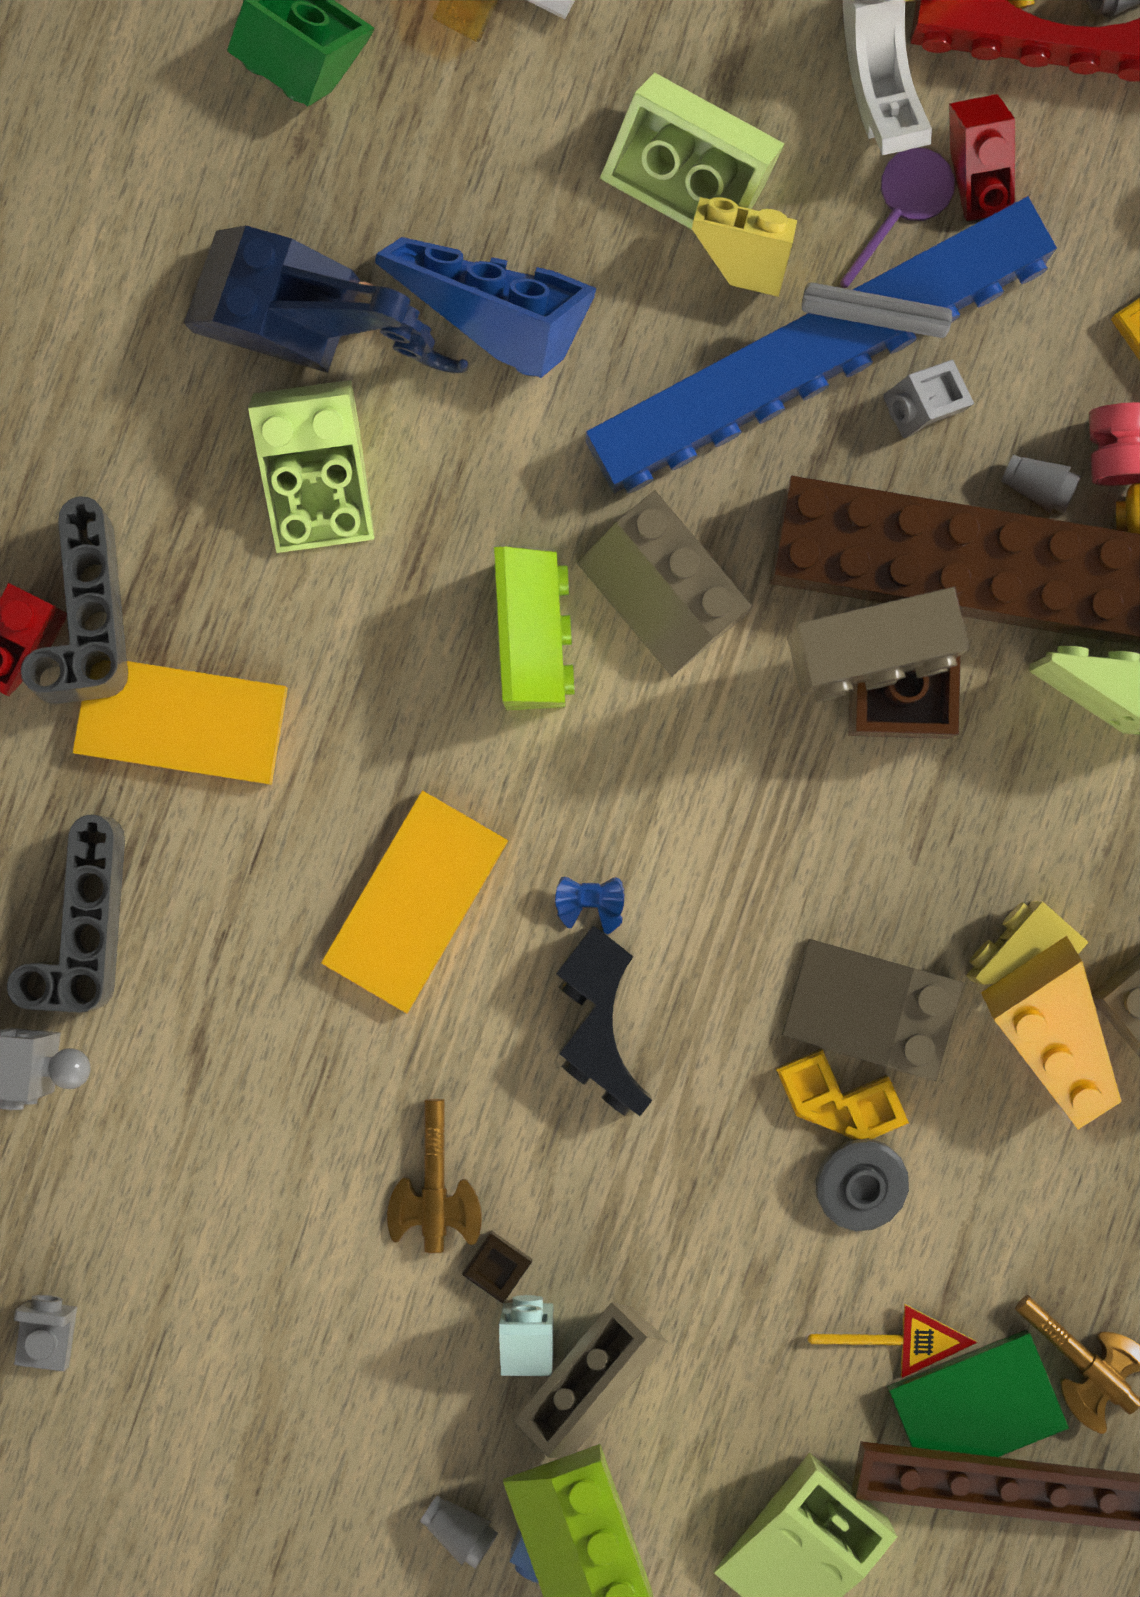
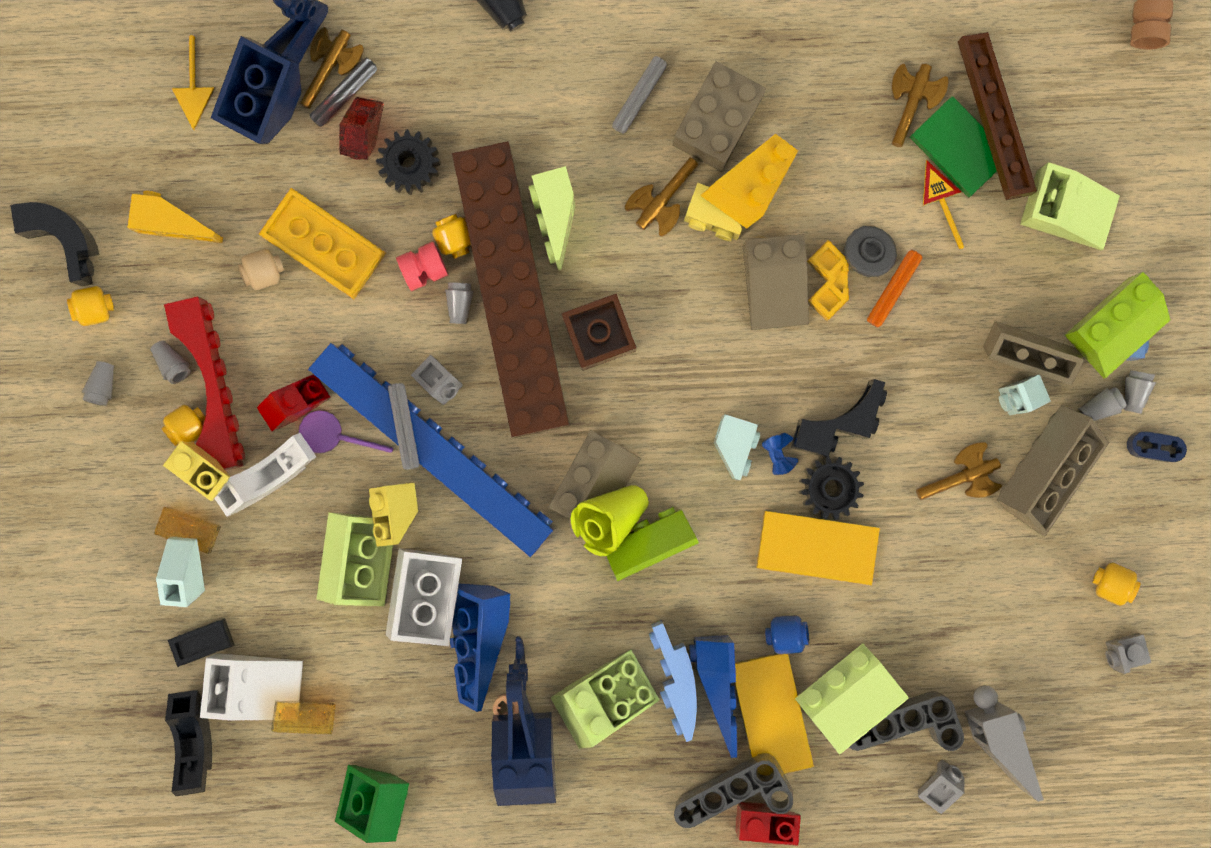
camera: 120 degrees left, 0 degrees up
(155, 851) = (851, 698): none -> yellowish green slope
(162, 1360) = (1116, 584): none -> yellow head
(278, 589) = (681, 689): none -> light blue slope
(278, 653) = (716, 668): none -> blue wedge
(296, 795) = (787, 634): none -> blue head
(346, 1517) = (1157, 440): none -> dark blue beam
(387, 1336) = (1053, 469): none -> dark tan slope
(458, 1462) = (1104, 404): none -> light grey cone
(479, 976) = (846, 493): none -> black gear
(497, 1267) = (992, 426): dark brown tile -> none
(589, 240) = (423, 597): none -> white slope
(599, 580) = (608, 518): none -> neon yellow cone
(637, 832) = (734, 442): none -> light aqua slope
(785, 1200) = (894, 288): none -> orange axle
(878, 644) = (590, 353): dark tan brick -> none
(1072, 861) = (655, 207): none -> pearl gold piece

